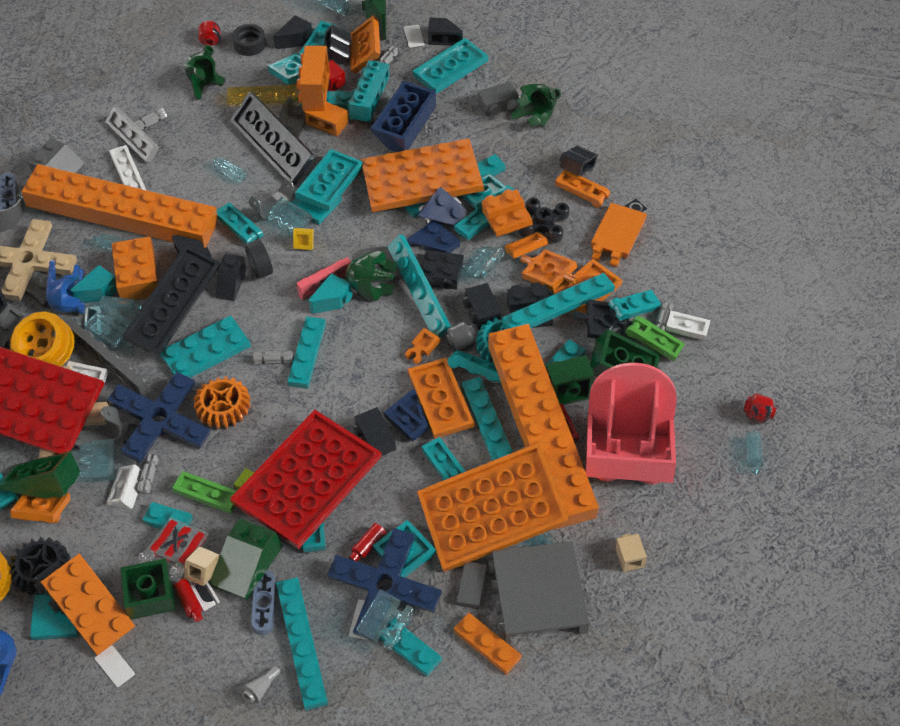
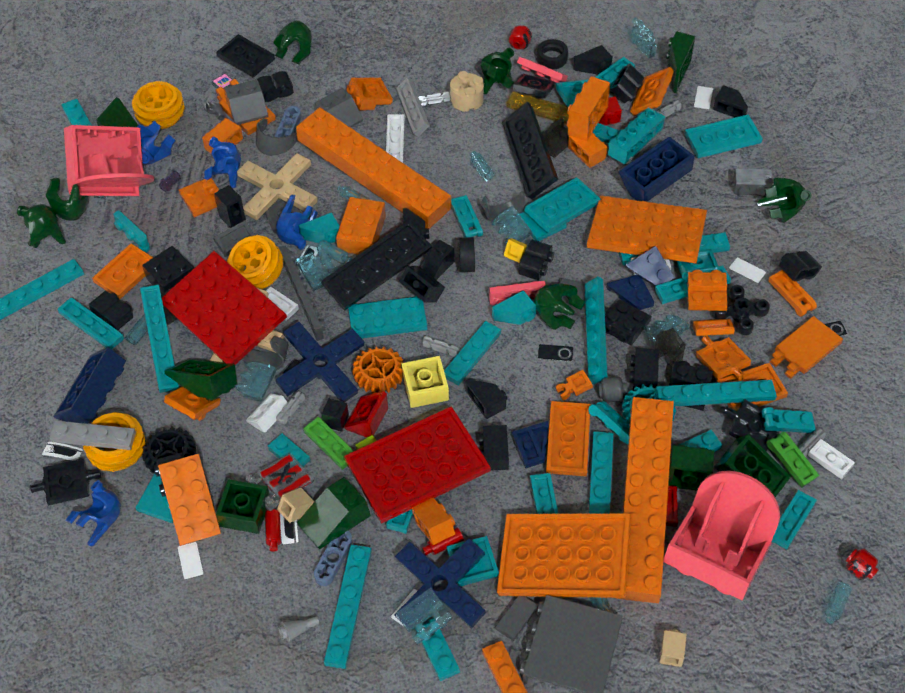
camera: 25 degrees right, 0 degrees up
(79, 135) = (368, 93): none -> orange plate
(181, 101) = (466, 91): none -> tan brick
(199, 461) = (335, 414): none -> black brick
(226, 303) = (421, 284): none -> black brick
(231, 449) = (368, 414): none -> red slope
(246, 75) = (533, 86): none -> black plate
(262, 60) = (542, 70): none -> coral plate
(275, 396) = (425, 381): none -> light yellow brick
(328, 241) = (535, 260): none -> black brick
(342, 388) = (486, 397): none -> black slope
(349, 525) = (434, 521): none -> orange brick
(388, 322) = (555, 352): none -> black sticker
(497, 275) = (670, 346): none -> clear smoke bracket
(531, 182) = (747, 270): none -> white sticker
(682, 379) = (793, 519): none -> teal plate

